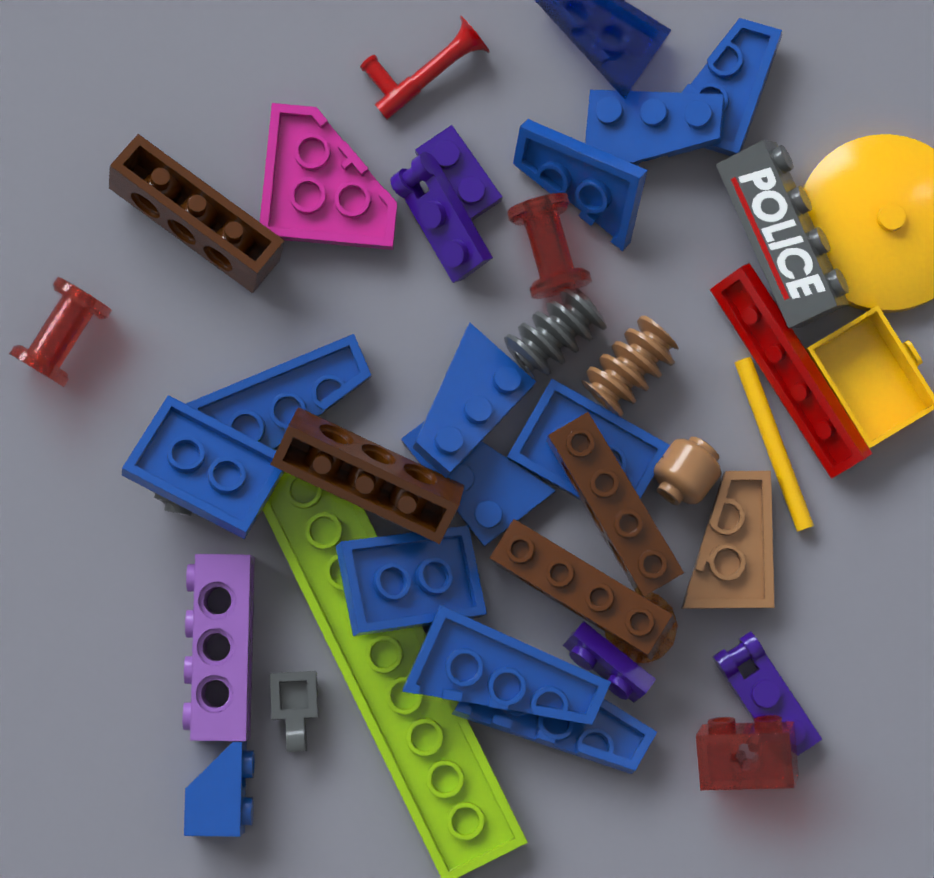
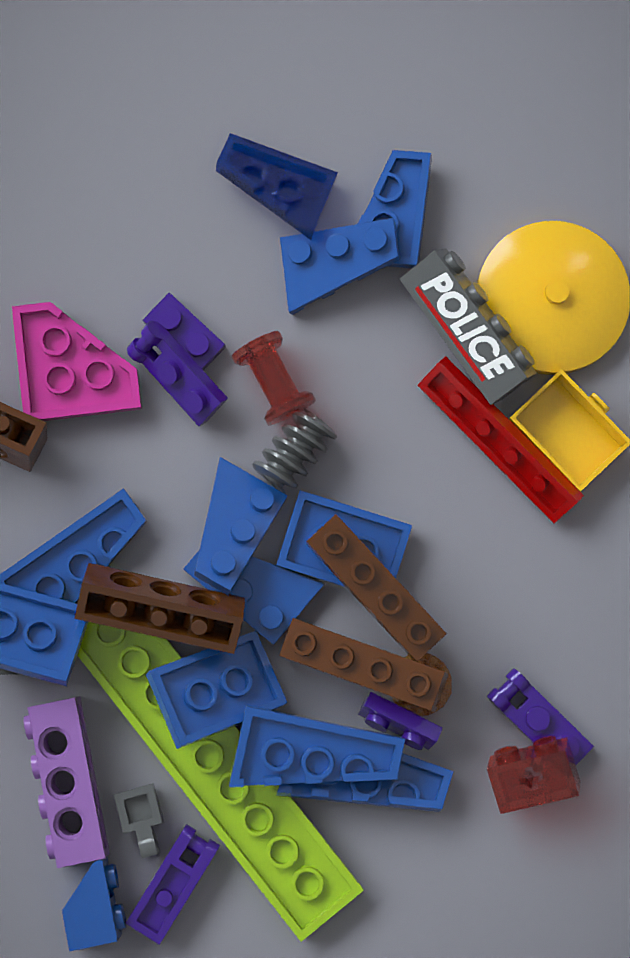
camera: 15 degrees left, 0 degrees up
(312, 790) = (171, 886): none -> dark purple plate
(399, 95) = (119, 276): red piece -> none
(596, 182) = (299, 314): blue wing -> none
(630, 365) = (364, 464): medium nougat piece -> none
(687, 471) = (431, 544): medium nougat head -> none
(737, 547) = (487, 599): medium nougat wing -> none
(774, 444) = (499, 504): yellow bar -> none

